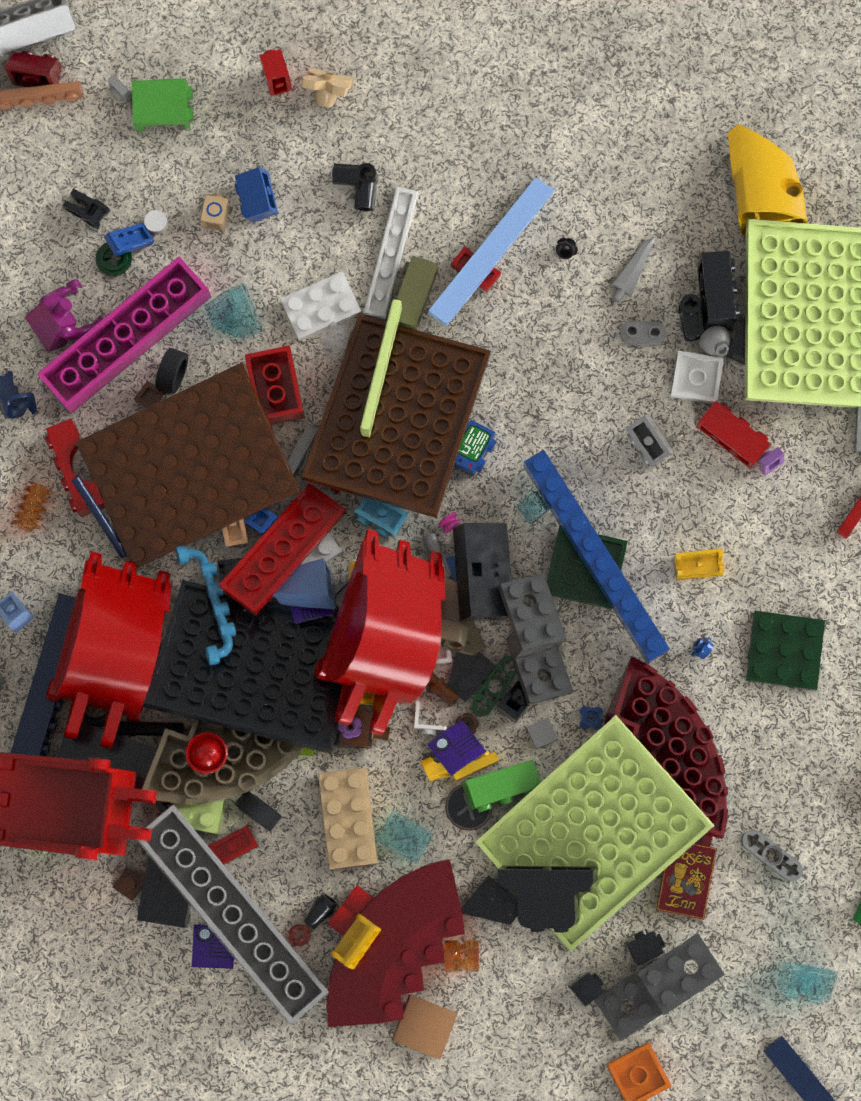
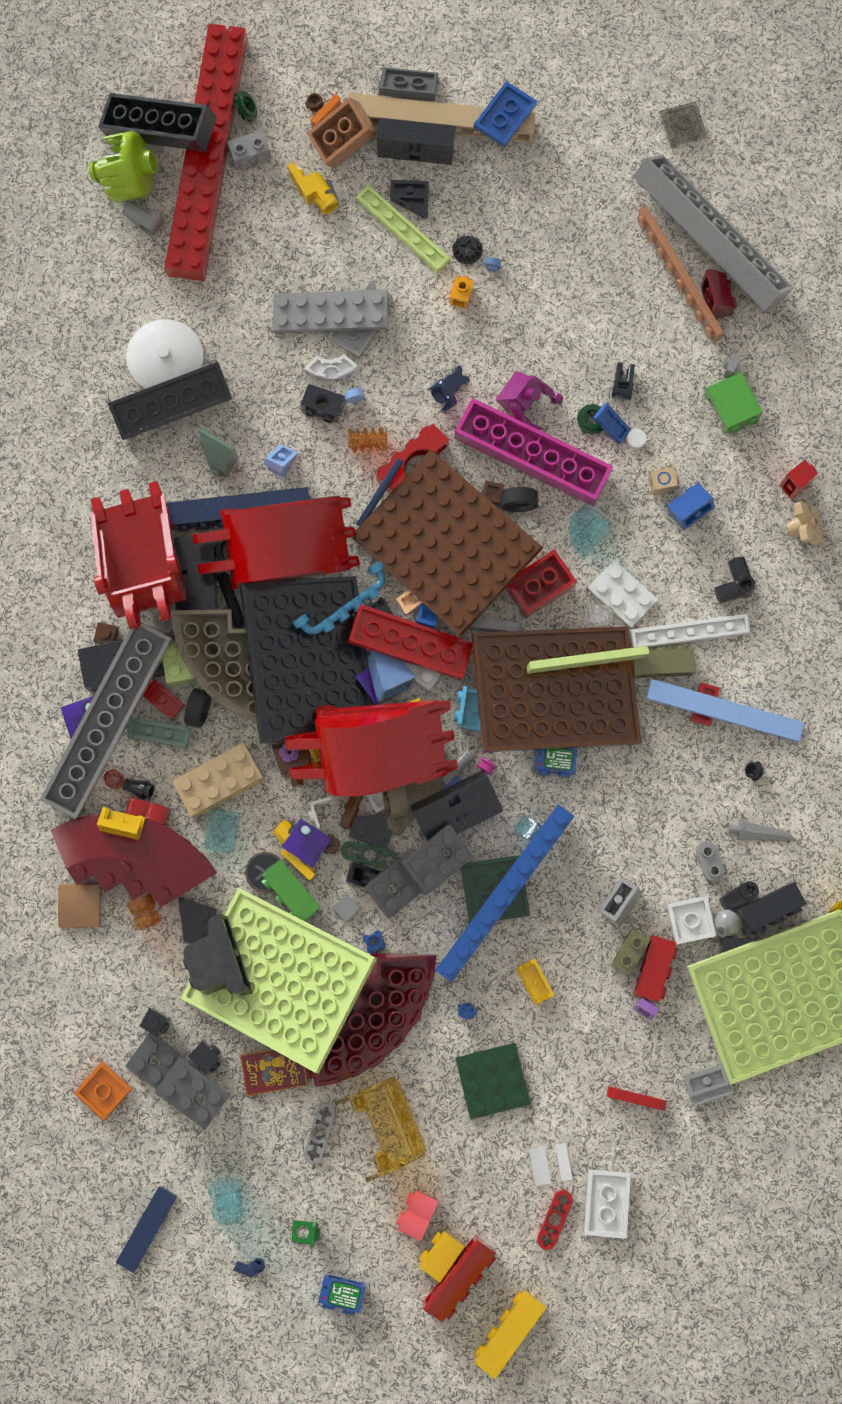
camera: 65 degrees right, 0 degrees up
(206, 752) = (222, 647): red hat -> none
(267, 865) = (159, 732): none -> sand green plate
(707, 453) = (630, 952): none -> olive brick
(793, 774) = (392, 1124): none -> clear yellow windscreen

